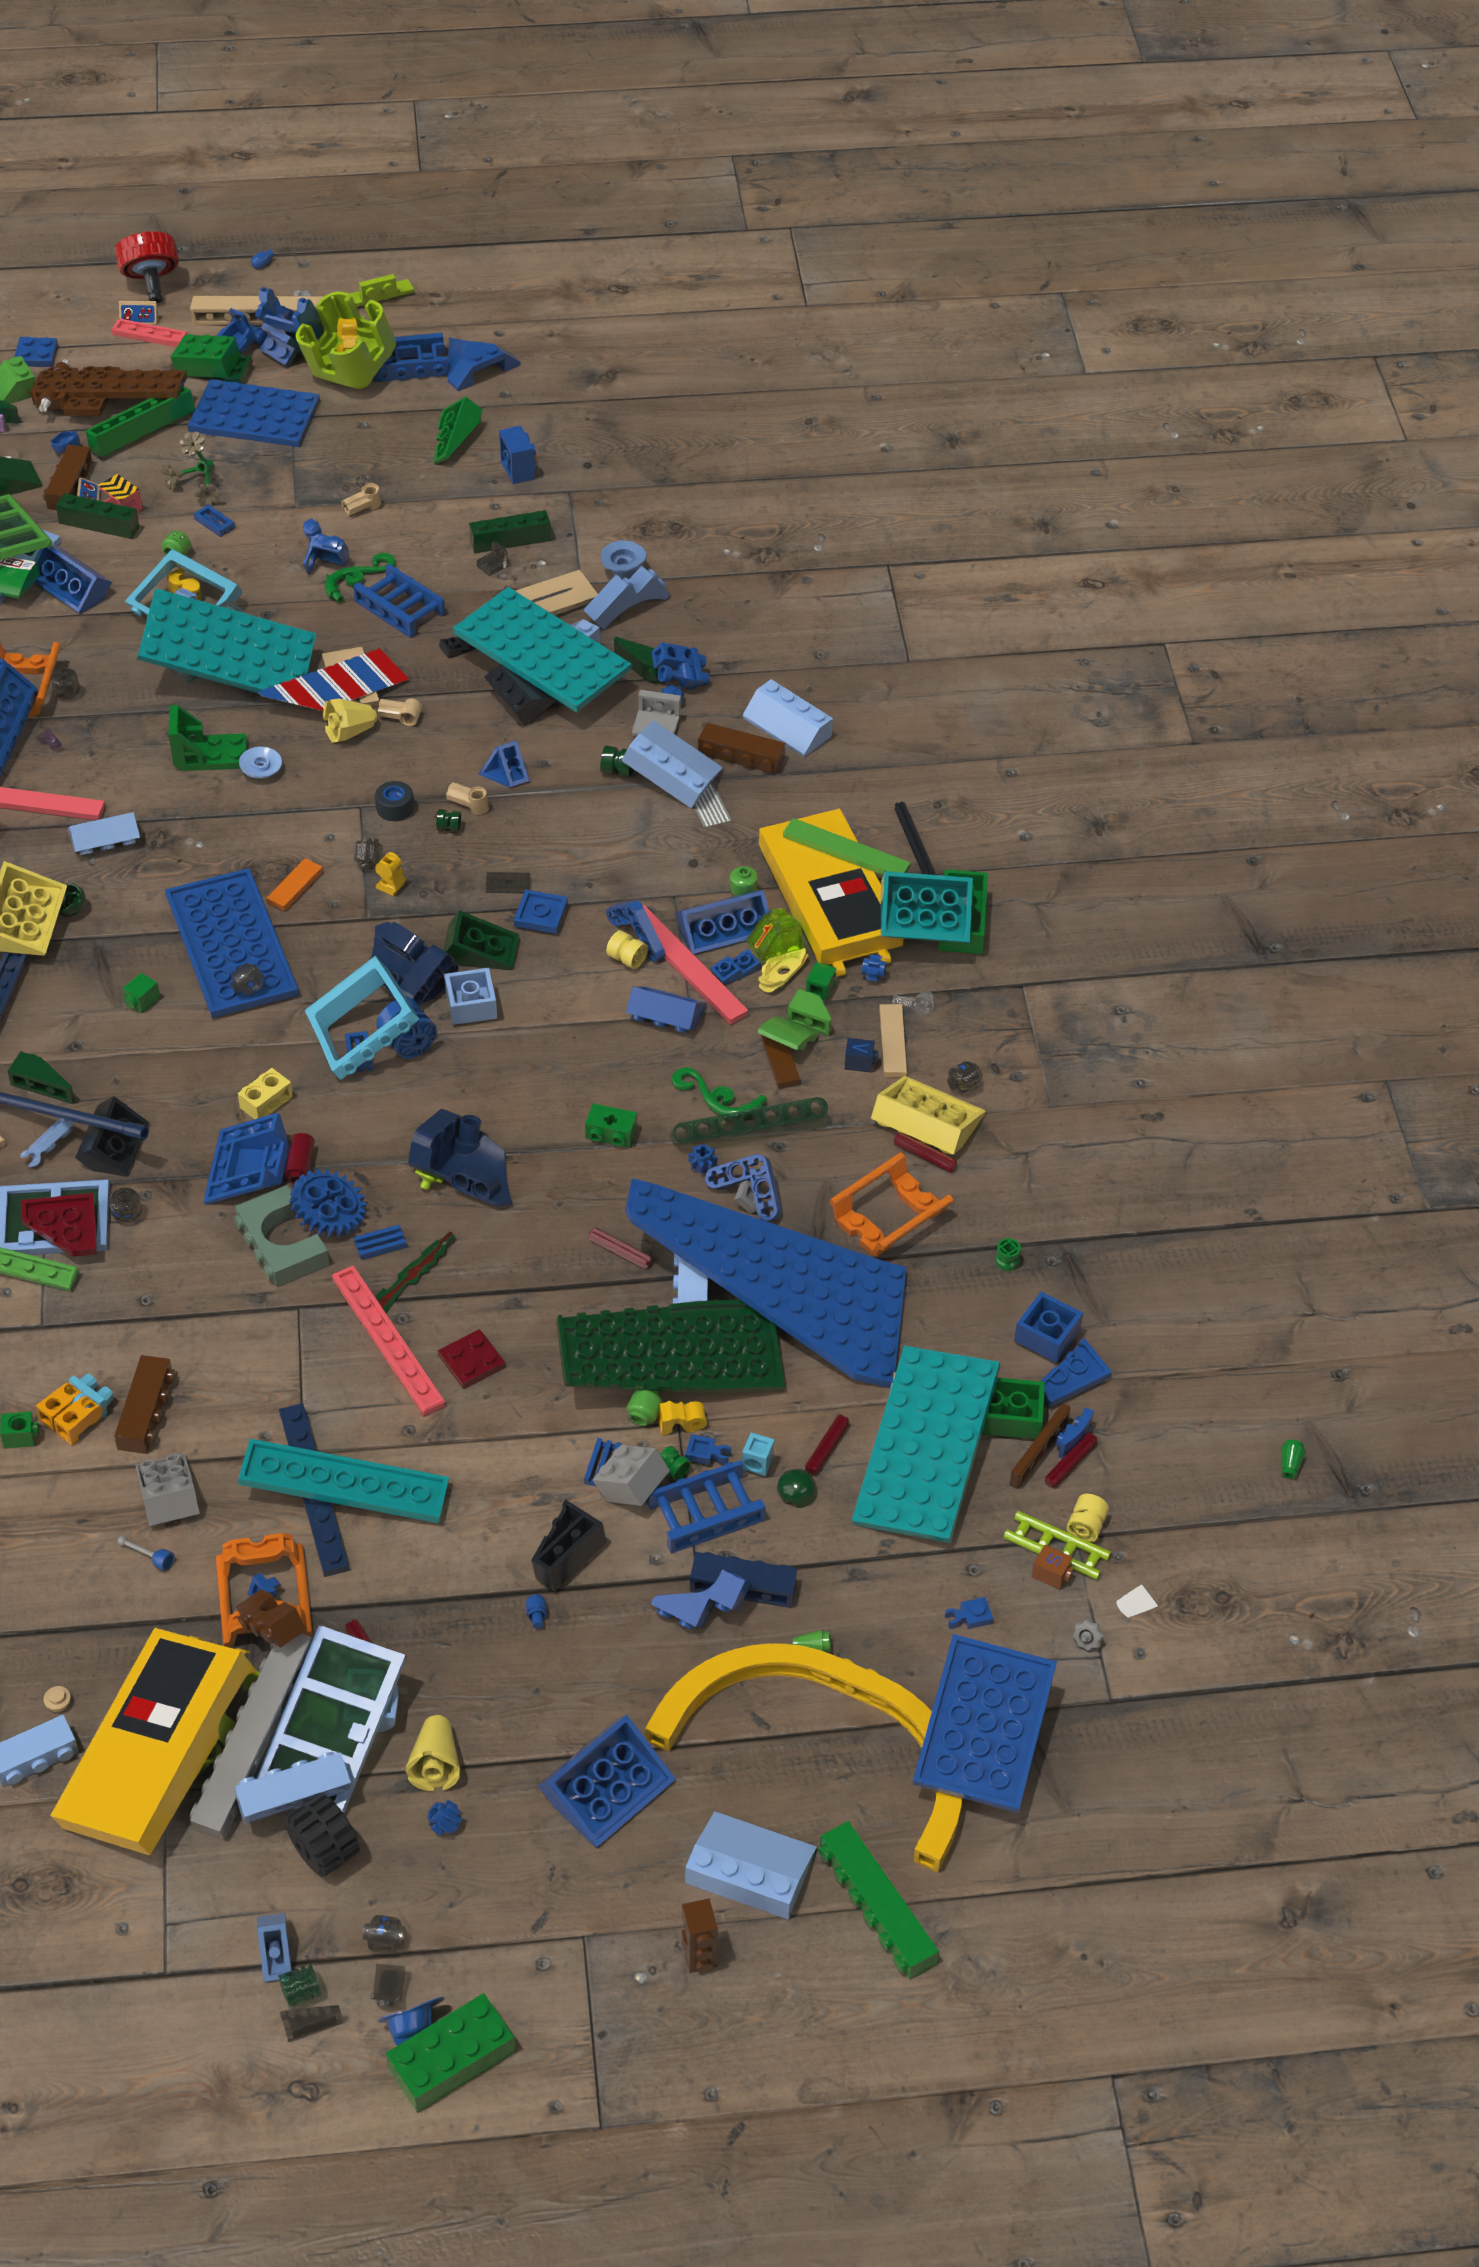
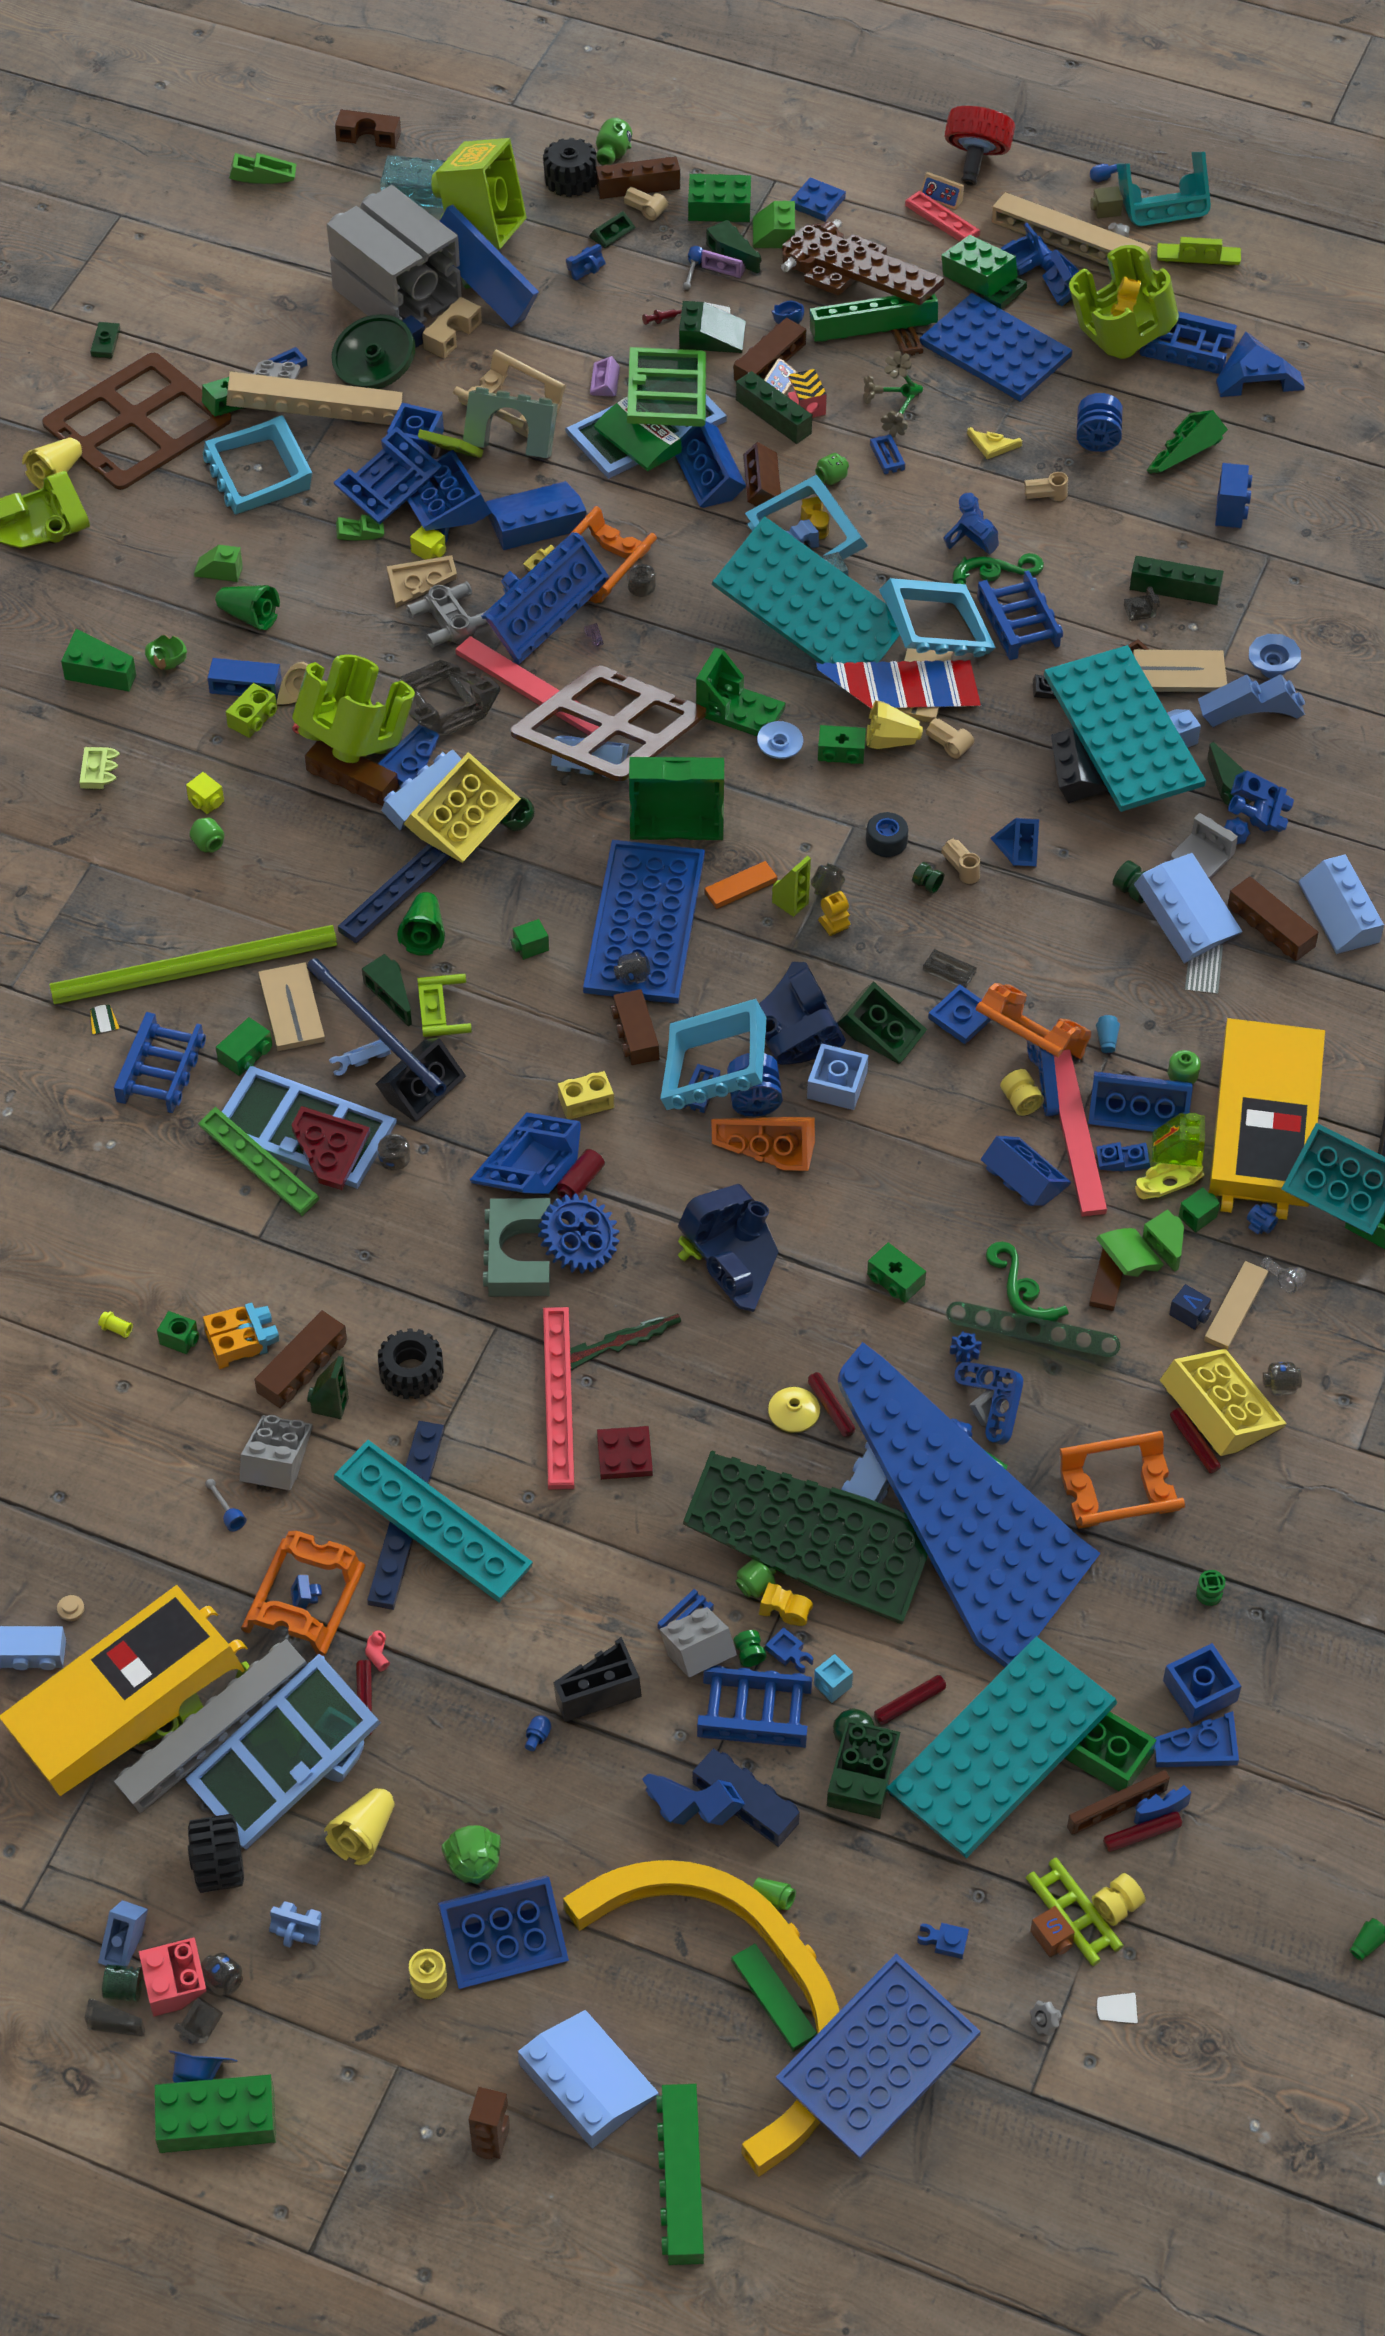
camera: 30 degrees right, 5 degrees up
(40, 1018) = (422, 926): none -> green cone
(88, 1079) = (433, 1006): none -> lime plate
(111, 801) = (608, 725): none -> window
(119, 568) = (761, 474): none -> reddish brown brick
(173, 433) = (909, 350): none -> reddish brown tile
(187, 1415) = (330, 1391): none -> dark green slope
(207, 832) = (676, 798): none -> green tile
(247, 1381) = (410, 1380): none -> black tyre
(267, 1619) = (277, 1626): reddish brown arch -> none
(275, 1025) = (635, 1027): none -> reddish brown brick
(280, 279) = (1107, 202): none -> olive brick
(284, 318) = (1076, 252): blue animal -> none
(291, 1787) = (214, 1795): light blue brick -> none
(296, 484) = (992, 443): none -> light yellow tile
(298, 613) = (958, 594): none -> medium azure windscreen
(314, 747) = (841, 744): none -> green brick
(342, 1957) = (172, 1975): none -> coral slope
(344, 868) = (793, 889): none -> lime slope
(345, 258) = (1188, 203): none -> teal windscreen
(353, 1608) = (374, 1650): none -> coral arm
(377, 437) = (1099, 422): none -> blue wheel
(378, 1239) = (609, 1291): blue tile -> none
(424, 1863) = (294, 1926): none -> medium blue hips
(444, 1067) = (773, 1140): none -> orange wedge
(444, 1817) = (336, 1891): blue gear -> none
(544, 1730) = (472, 1853): none -> bright green helmet
(566, 1845) = (428, 1974): none -> light yellow wheel
(575, 888) = (1005, 1006): none -> orange piece
(588, 1272) = (794, 1418): none -> light yellow dish
(666, 880) = (1108, 1031): none -> dark azure cone
(826, 1513) = (863, 1769): none -> dark green slope
(844, 848) = (1302, 1079): bright green tile -> none
(863, 1725) = (774, 1997): none -> green tile

